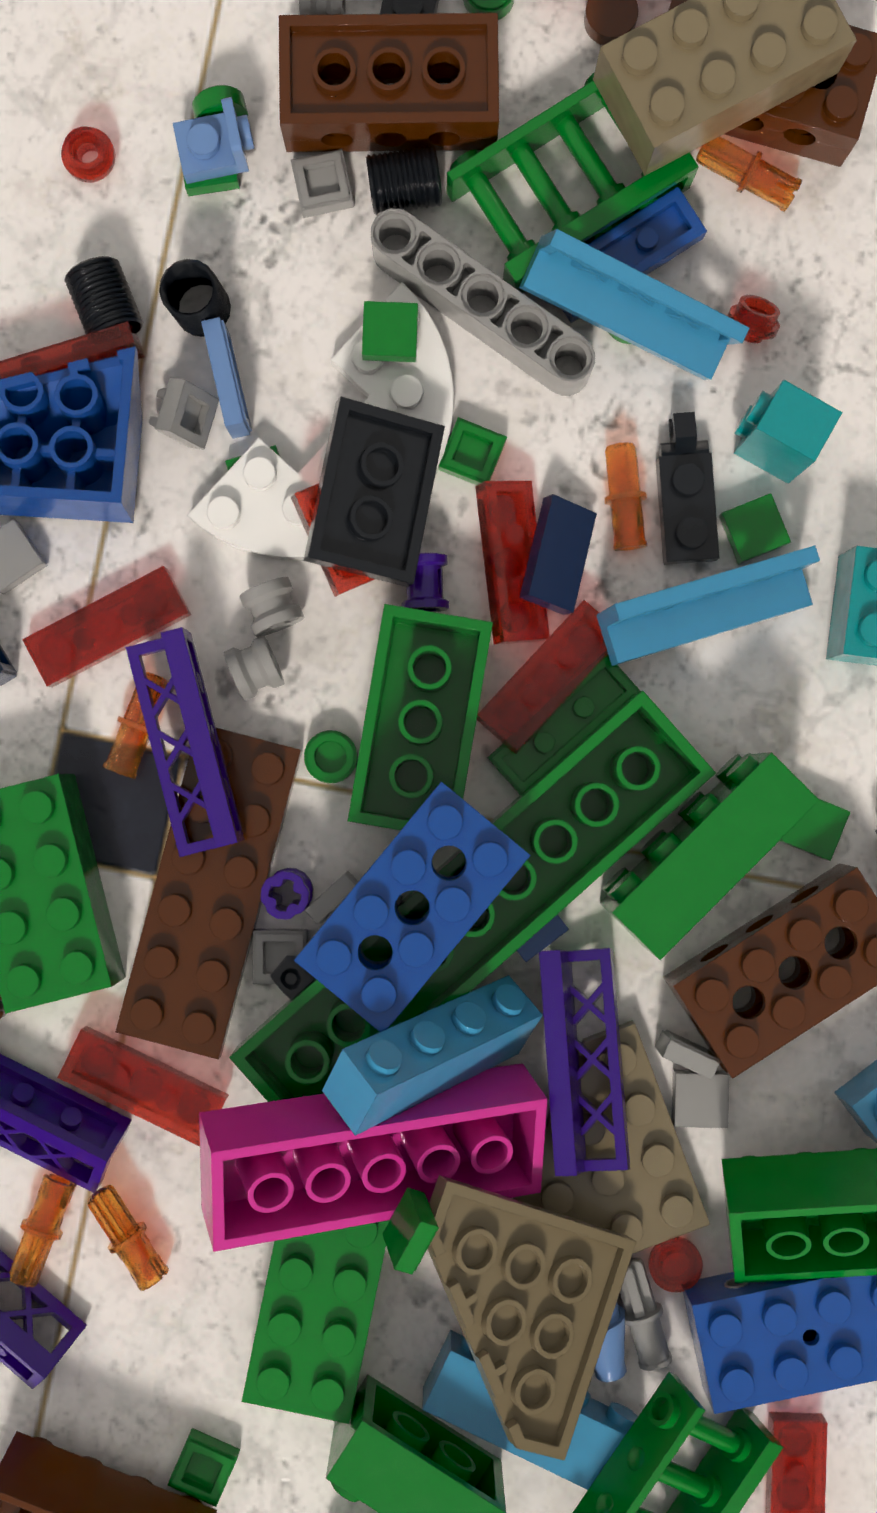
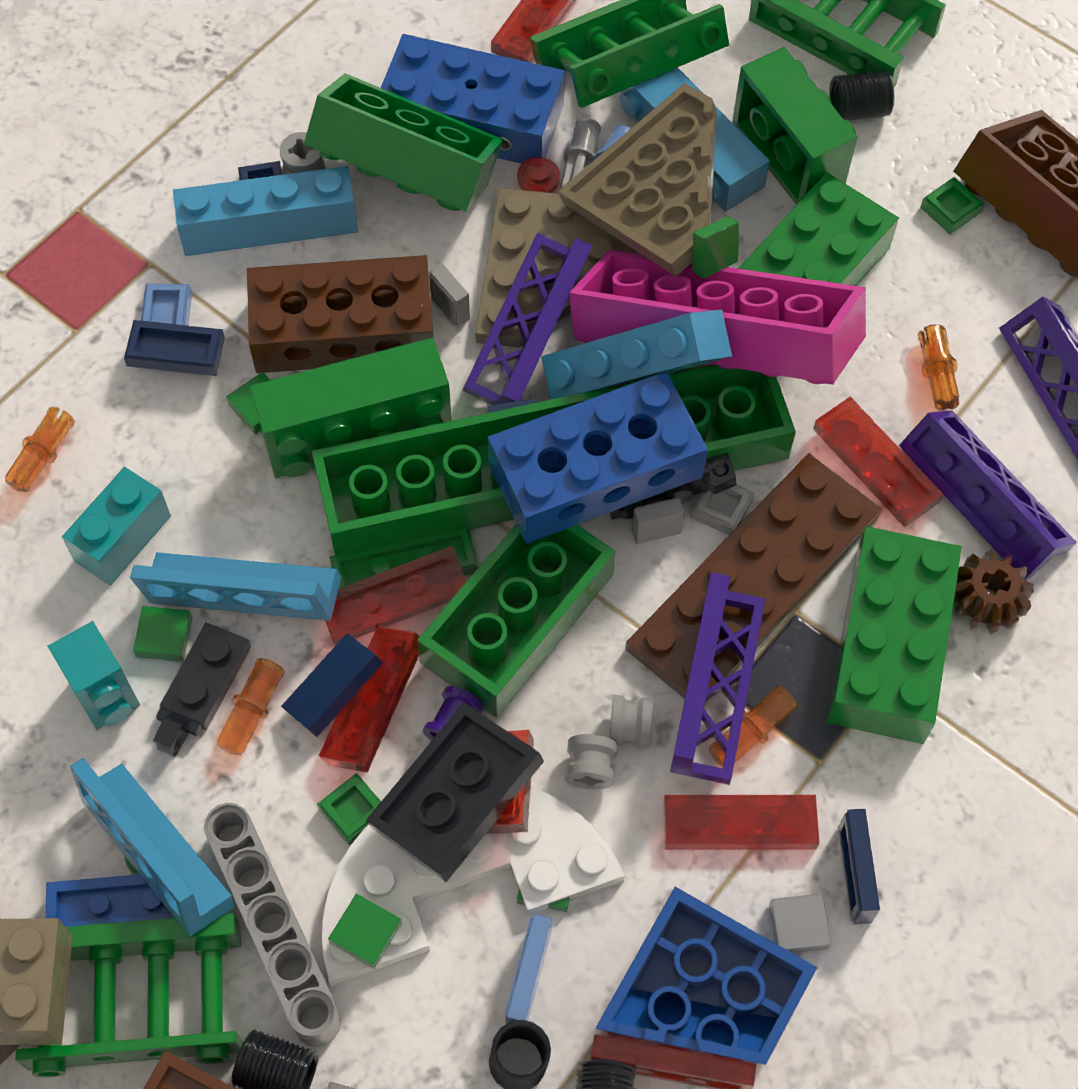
camera: 150 degrees left, 25 degrees down
(41, 1229) = (1004, 401): clear orange axle -> none
(185, 413) = (581, 960): light grey tile -> none
(273, 900) = (692, 539): dark purple bush -> none
(330, 756) = (604, 629): green tile -> none
(700, 1100) = (461, 262): light grey tile -> none
(758, 315) = (54, 793): clear red plate -> none

